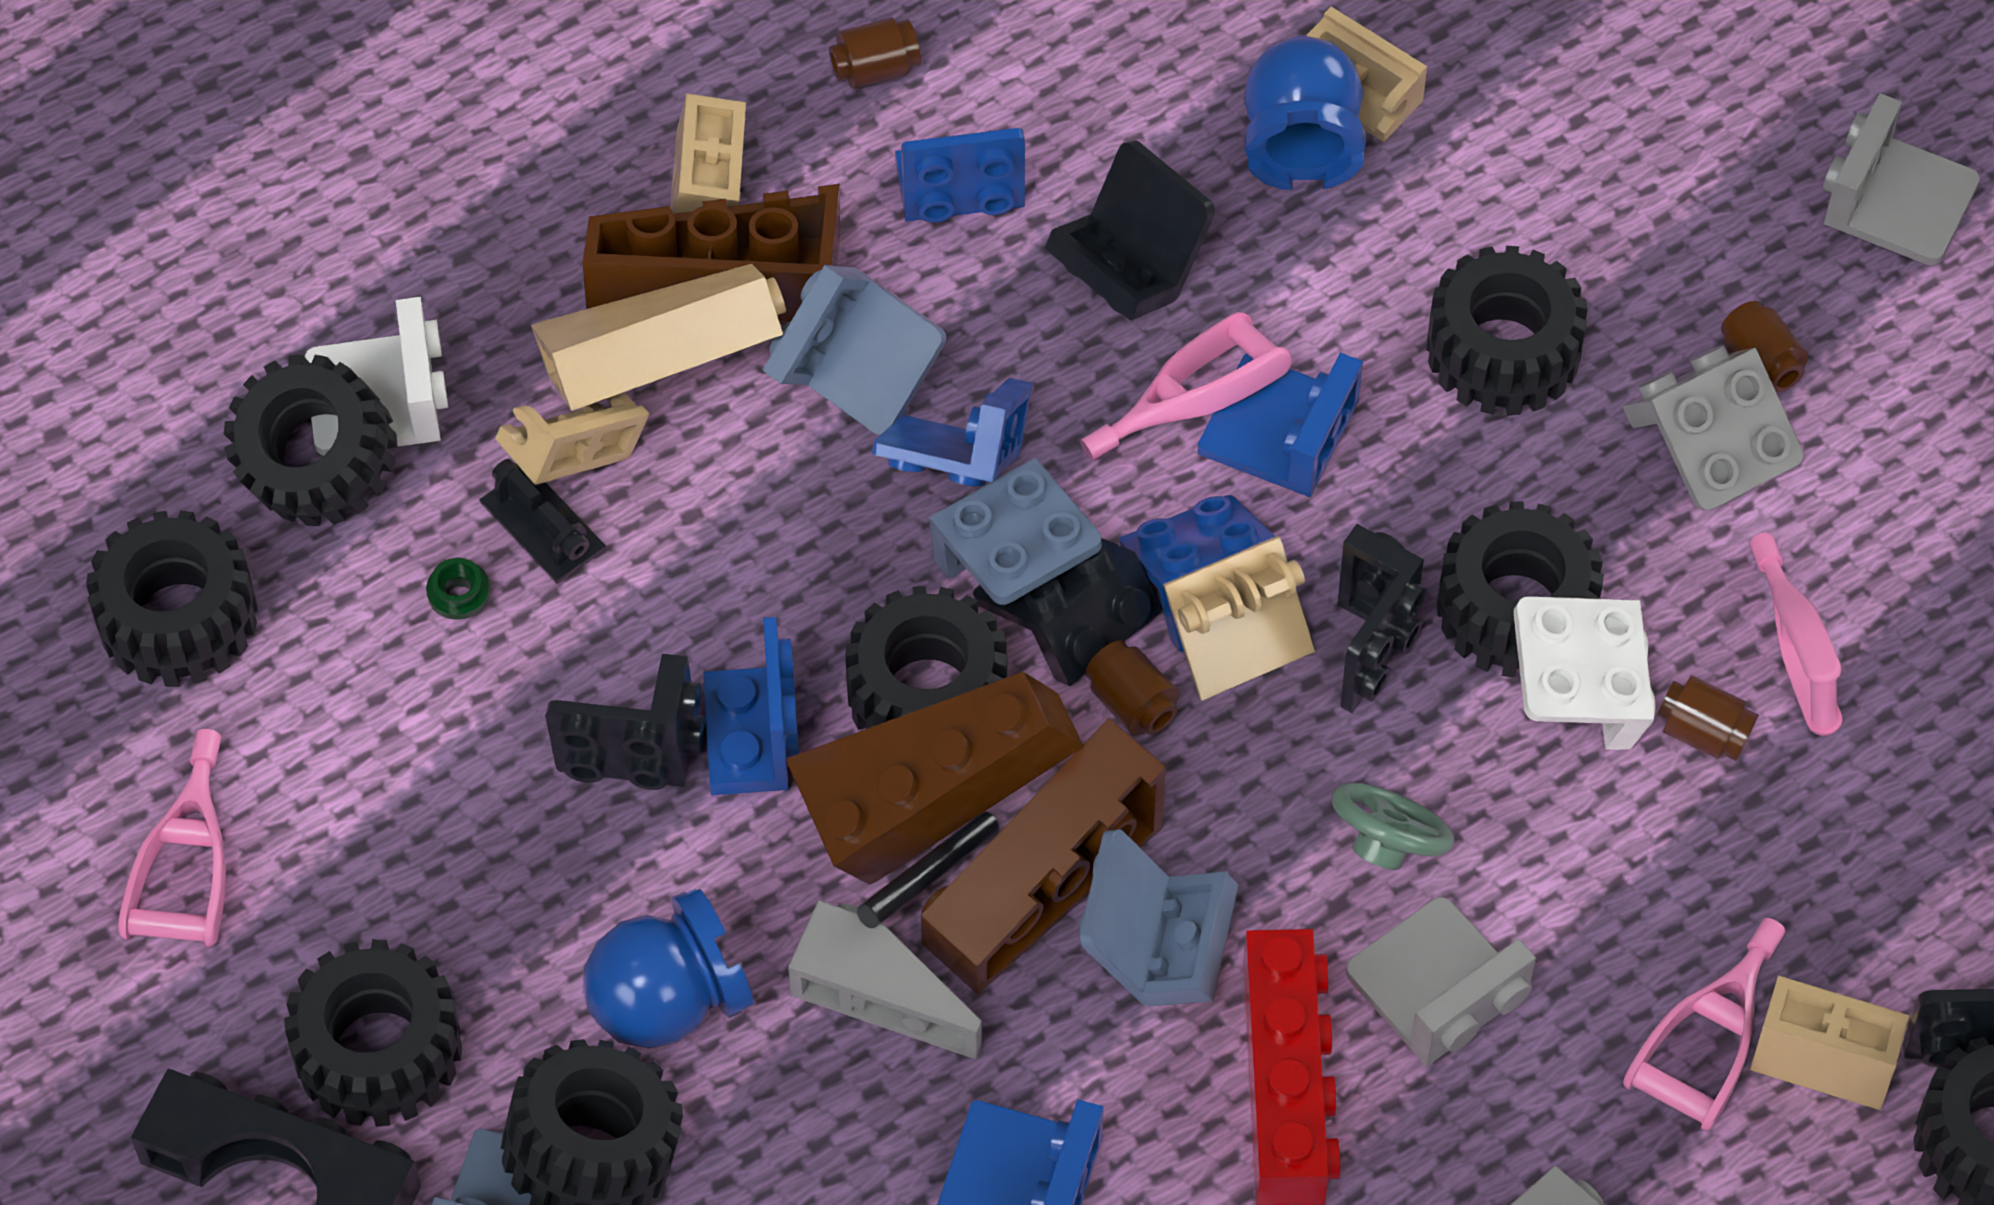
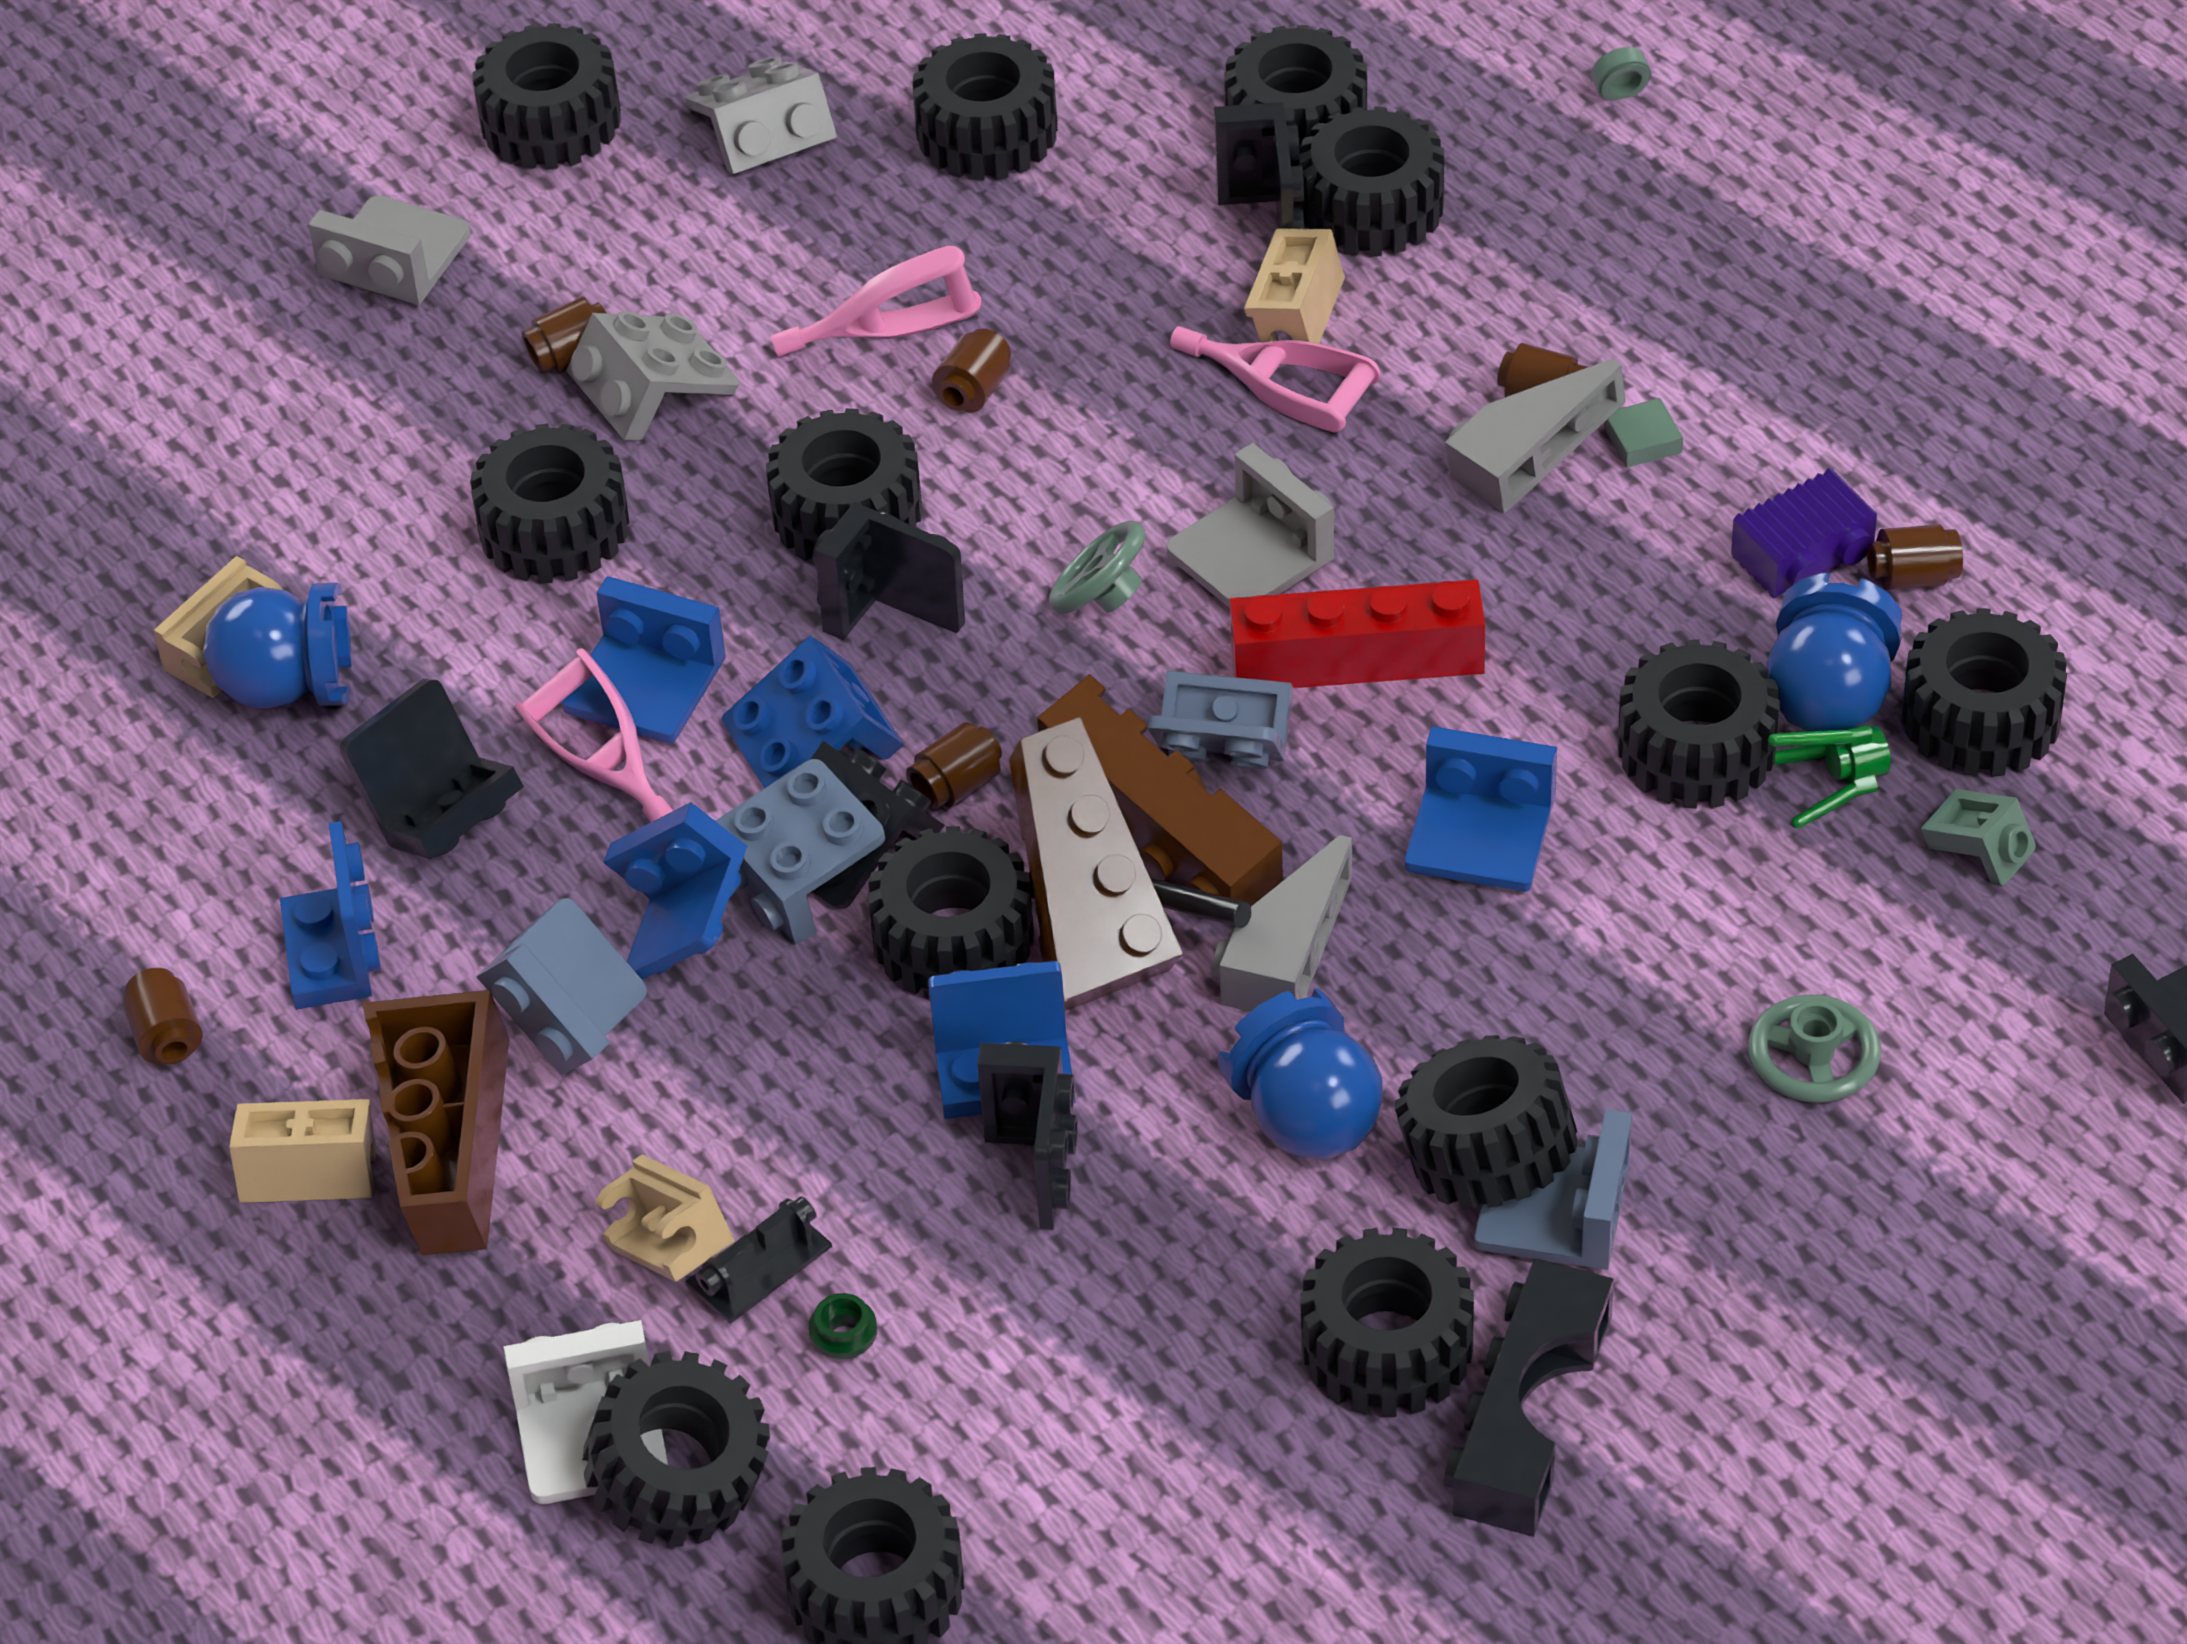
camera: 90 degrees left, 10 degrees down
(177, 830) = (1149, 1522): bright pink piece -> none
(657, 333) = (556, 1149): tan slope -> none
(1240, 617) = (878, 669): tan hinge -> none
(1586, 665) = (941, 417): white bracket -> none

